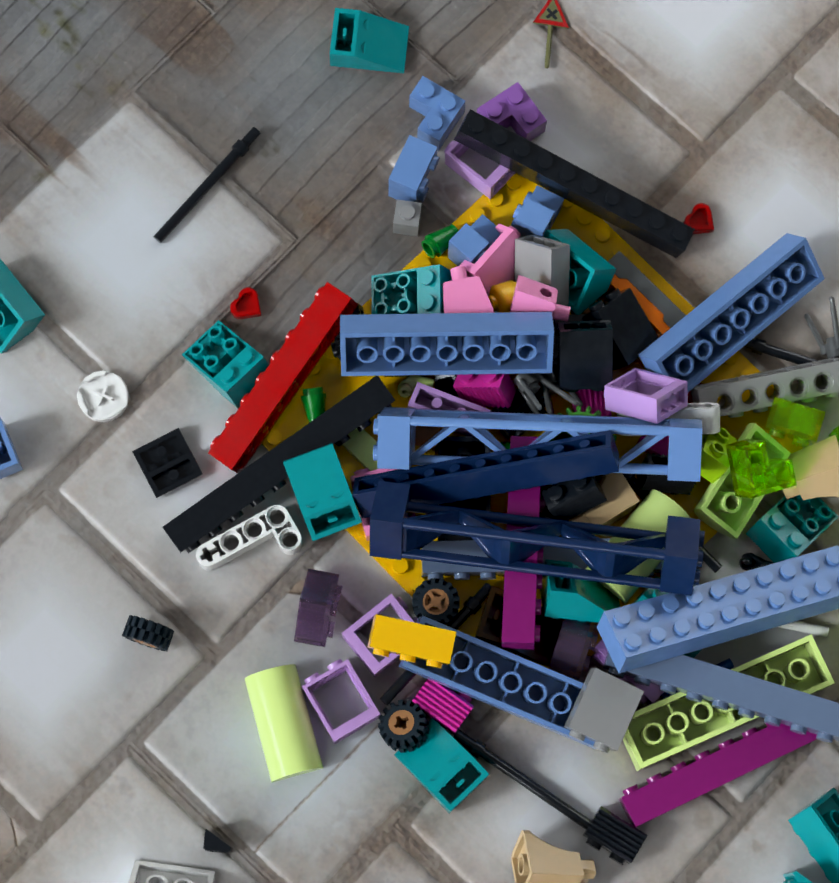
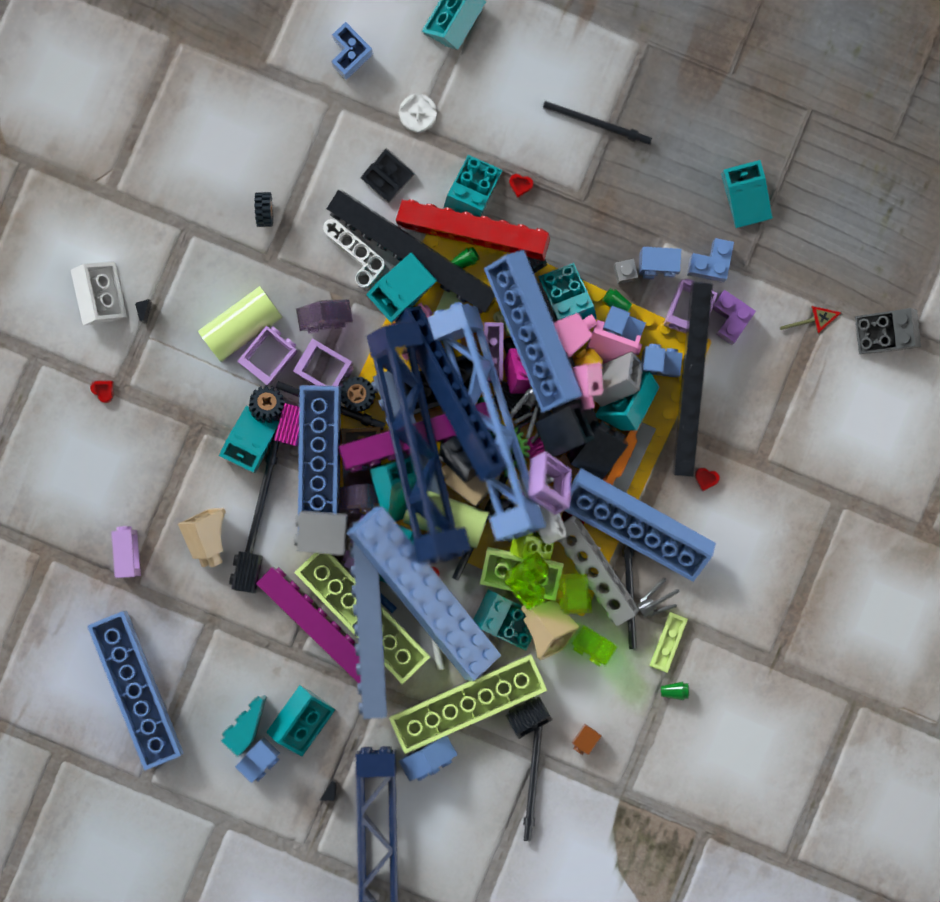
camera: 75 degrees right, 10 degrees up
(411, 641) = (316, 385): yellow brick -> none
(751, 561) = (469, 599): black arm -> none

